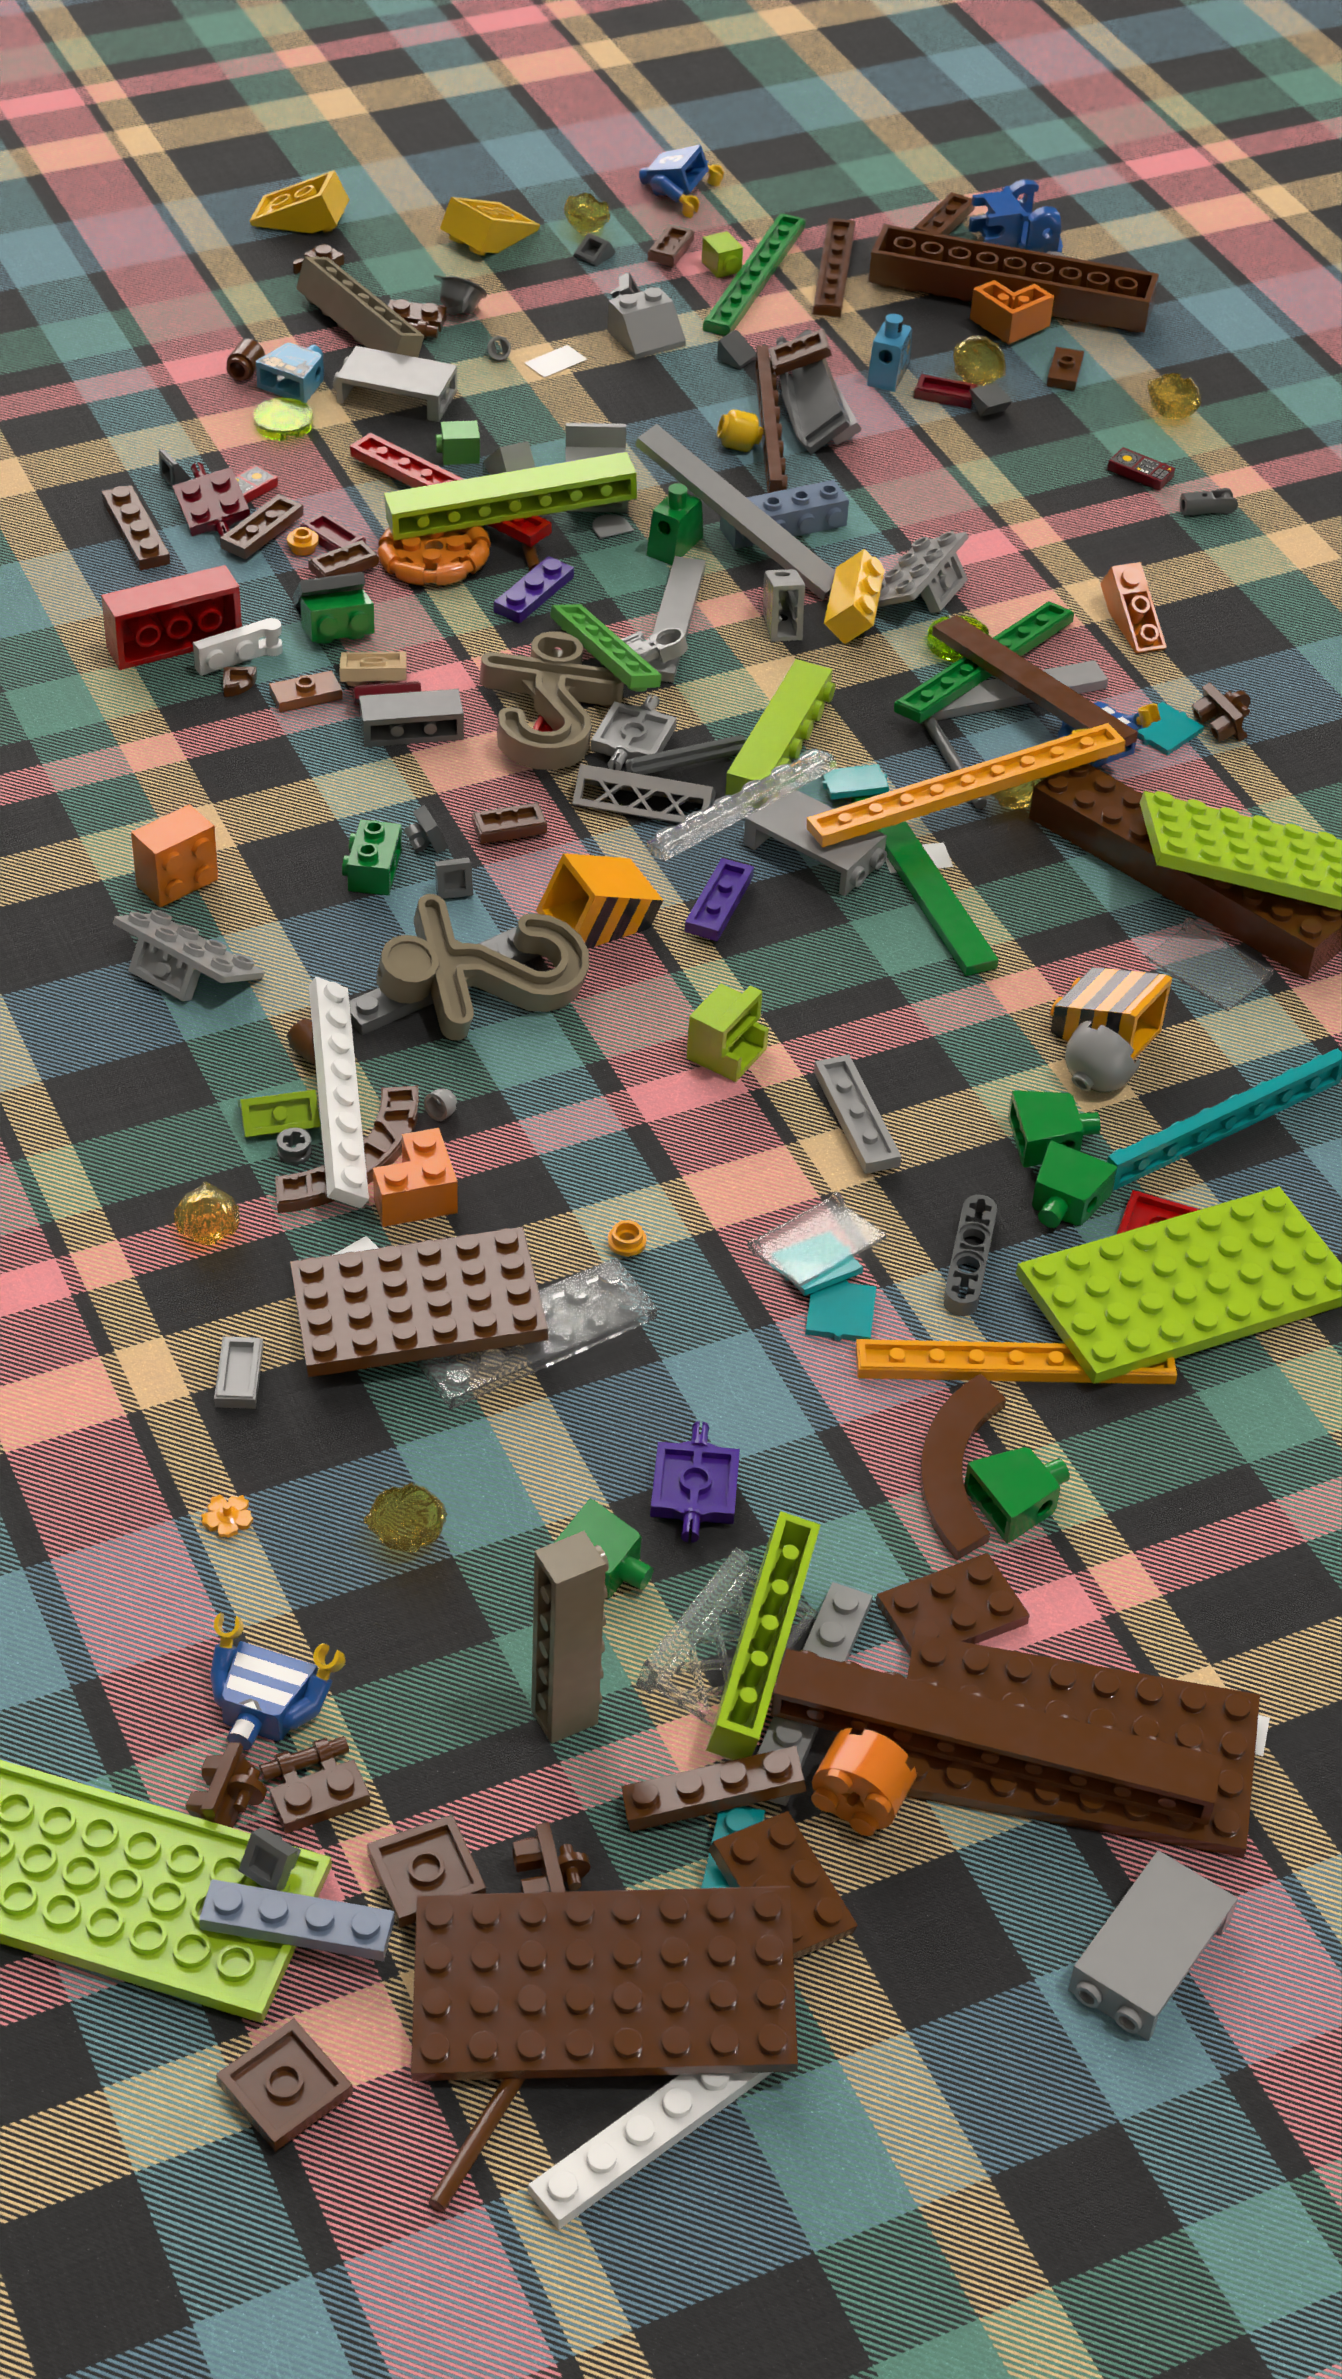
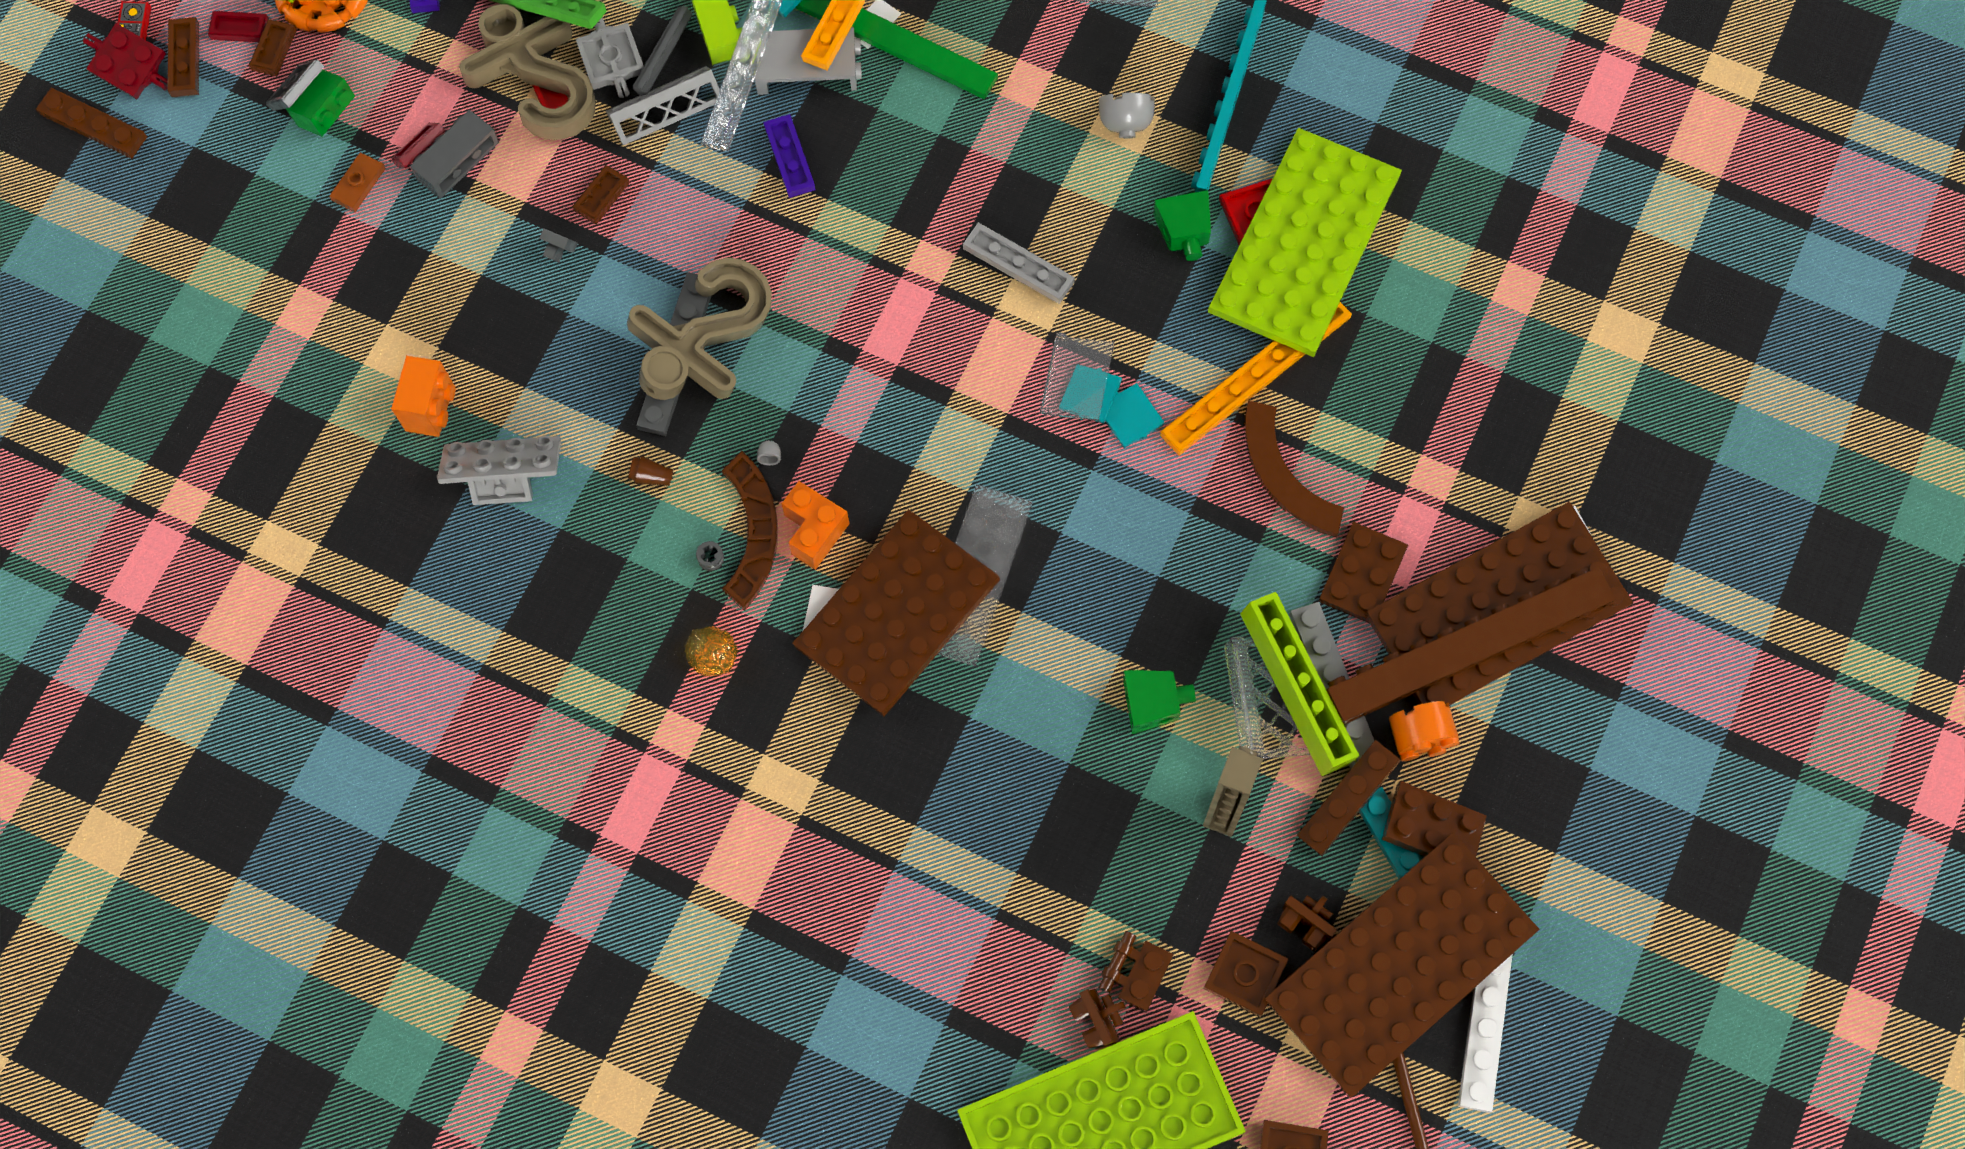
camera: 35 degrees left, 25 degrees up
(169, 615) = (213, 192): red brick -> none
(171, 470) = (68, 52): dark grey slope -> none
(227, 1516) = (923, 844): light orange plant -> none
(238, 646) = (277, 179): white plate -> none
(238, 680) = (301, 207): reddish brown tile -> none
(239, 1372) = (835, 743): light grey tile -> none
(264, 1689) = (1060, 940): blue torso -> none
(268, 1859) = (1172, 1045): dark grey tile -> none
(279, 1112) = (676, 537): lime panel -> none
(297, 1920) = (1215, 1065): plate -> none
(302, 541) = (223, 54): light orange plate -> none
(338, 1093) = (705, 498): white plate -> none
(360, 667) = (389, 130): tan plate -> none
(373, 857) = (544, 292): green brick -> none
(406, 1517) = (1032, 765): clear yellow hair -> none
(453, 878) = (610, 268): dark grey tile -> none
(600, 897) = (720, 217): light orange slope -> none
(627, 1238) = (969, 457): light orange plate -> none
(695, 1482) = (1161, 606): dark purple plate -> none
(726, 1031) = (895, 263): lime plate -> none
(970, 1254) = (1170, 316): dark grey beam -> none
(1015, 1489) = (1335, 467): green torso -> none
(1046, 1117) = (1136, 185): green torso -> none
(1122, 1000) = (1101, 65): light orange slope -> none
(1150, 1944) = (1639, 702): light grey panel -> none

